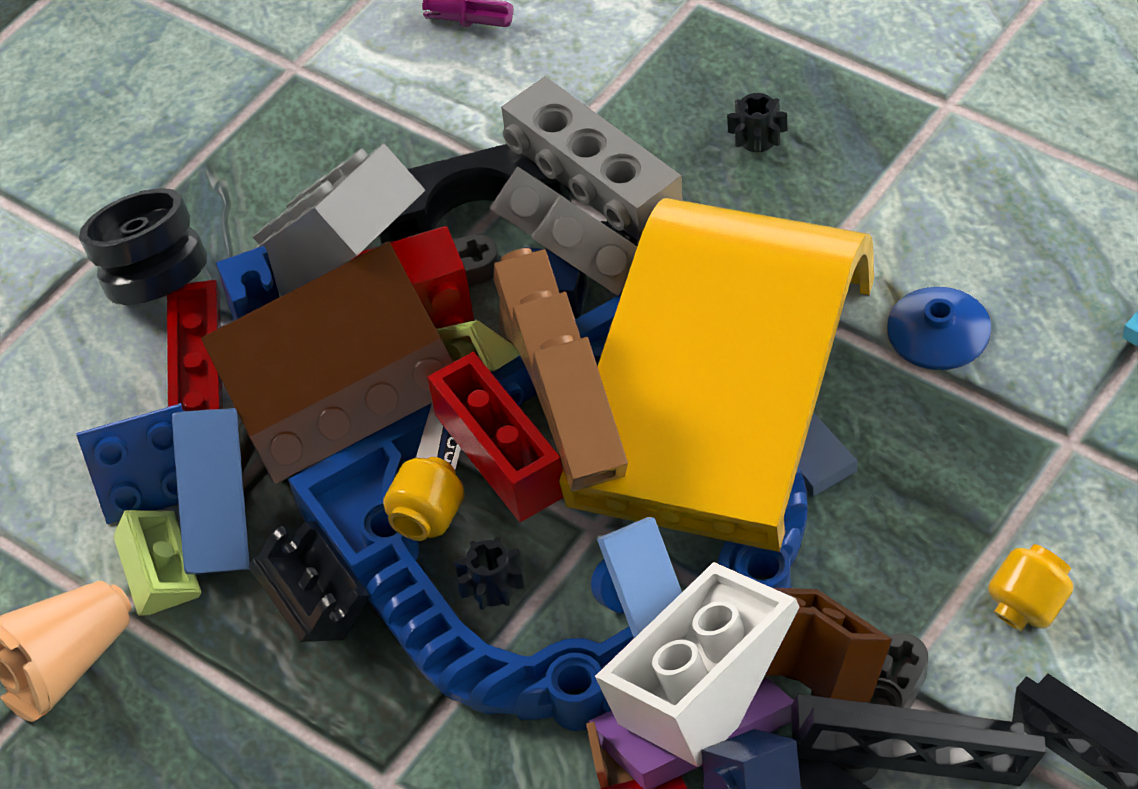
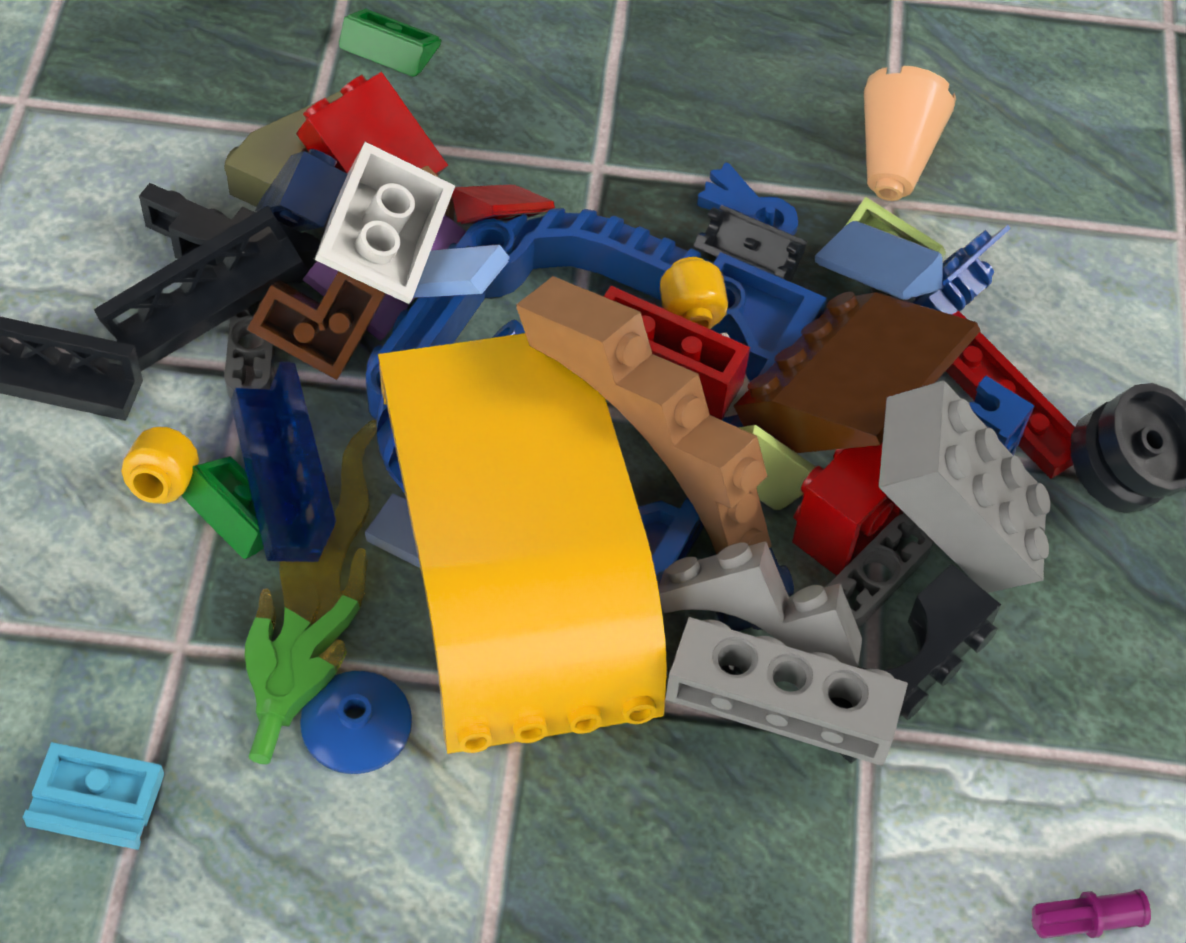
camera: 140 degrees right, 5 degrees up
(263, 633) = (737, 195): none -> blue piece
(489, 573) = (598, 260): black gear -> none
(535, 716) = (497, 203): none -> red slope
(757, 122) = (661, 895): black gear -> none
(909, 531) = (284, 468): none -> clear blue fence
(933, 416) = (315, 613): none -> piece
(962, 540) = (224, 500): none -> green slope

